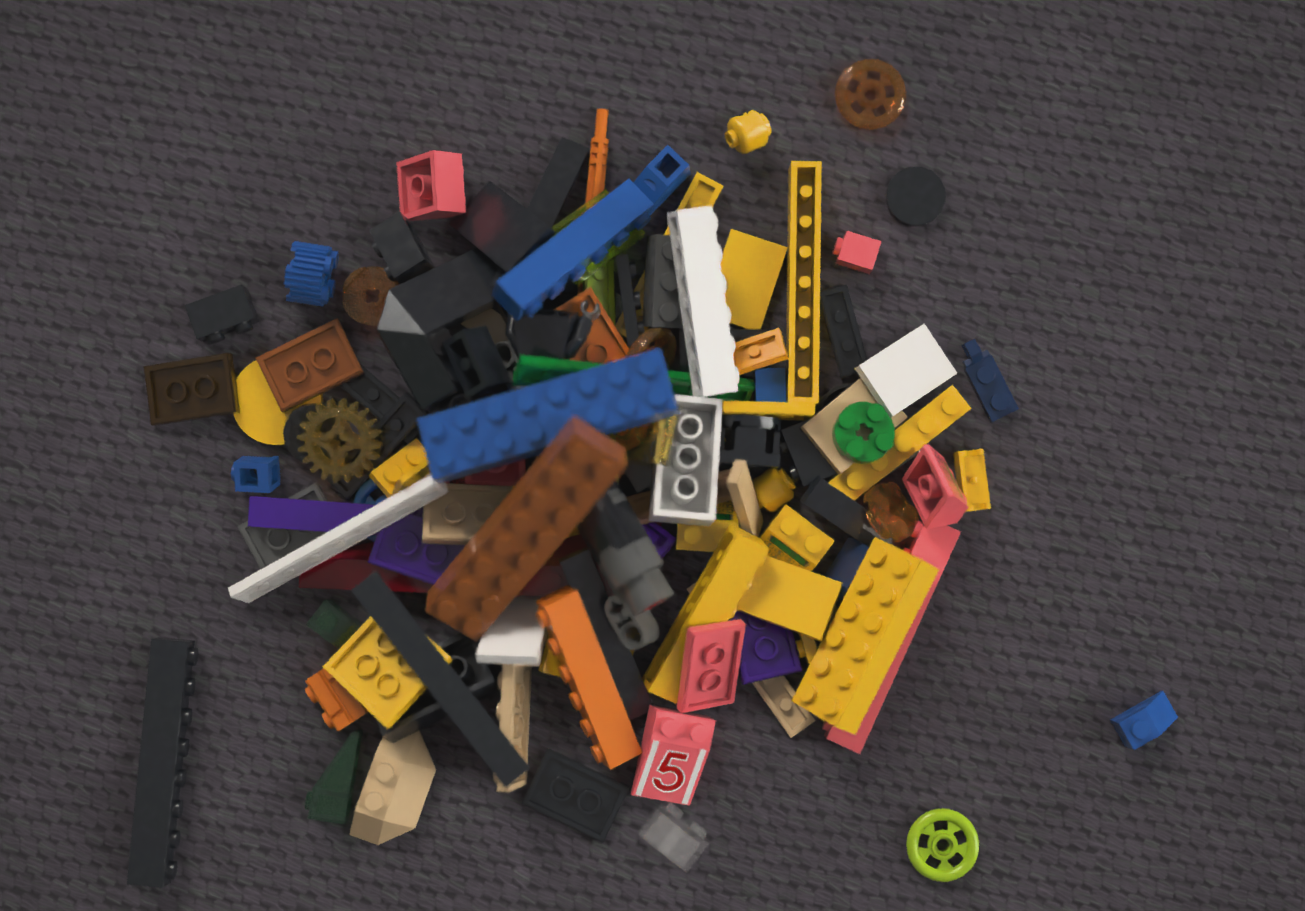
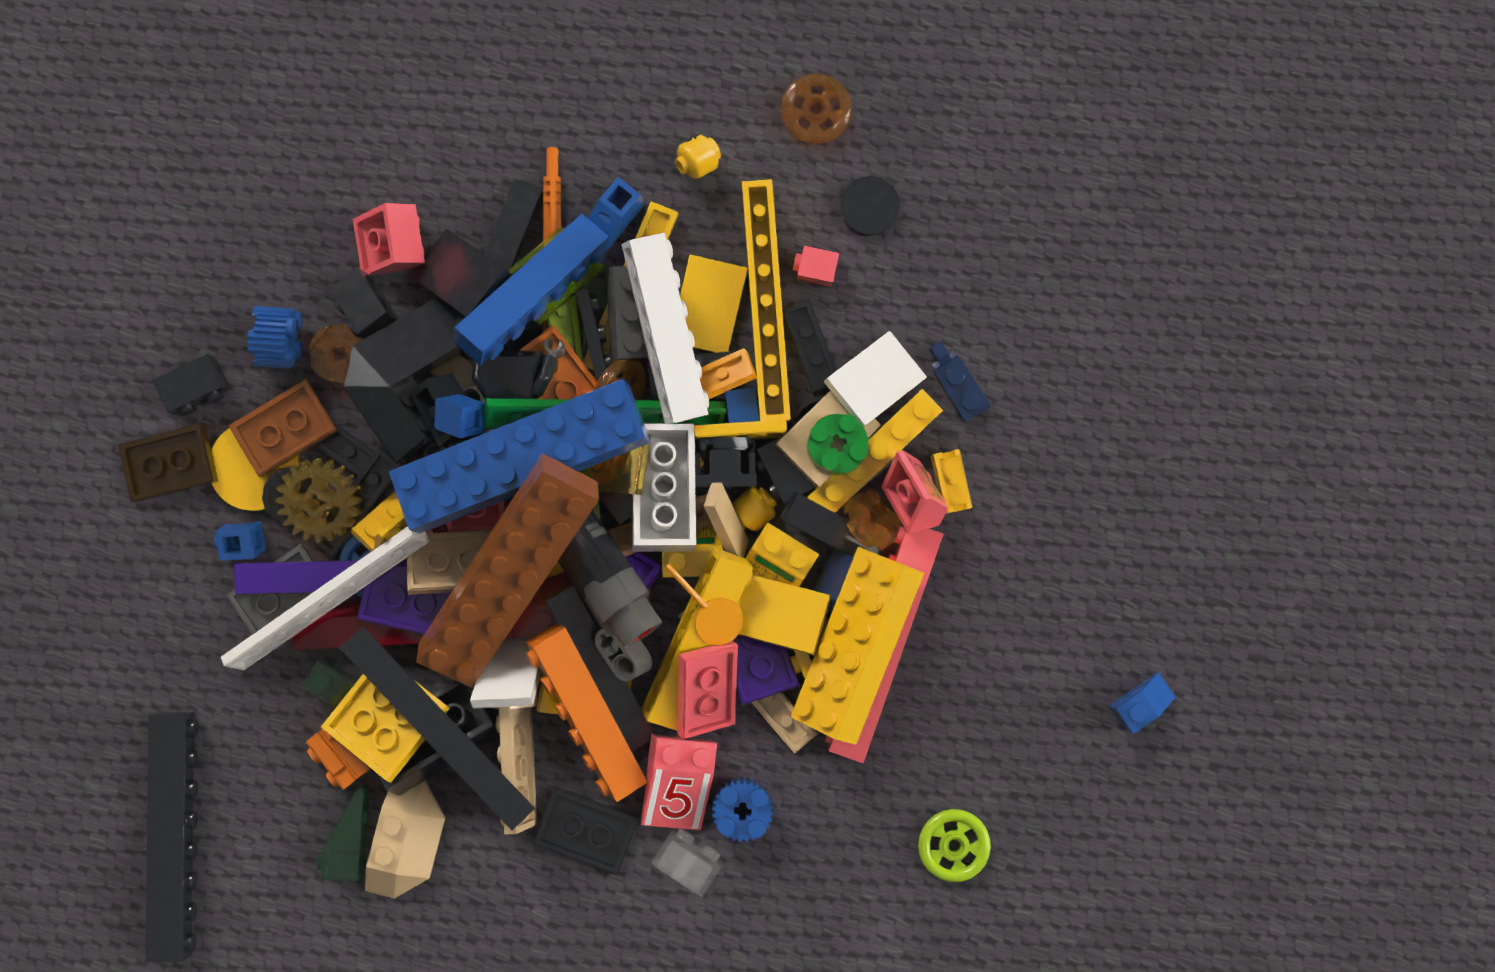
camera: 10 degrees left, 0 degrees up
(491, 369) = (459, 415): none -> blue panel
(728, 596) = (717, 619): none -> light orange piece
(738, 806) = (729, 821): none -> blue brick

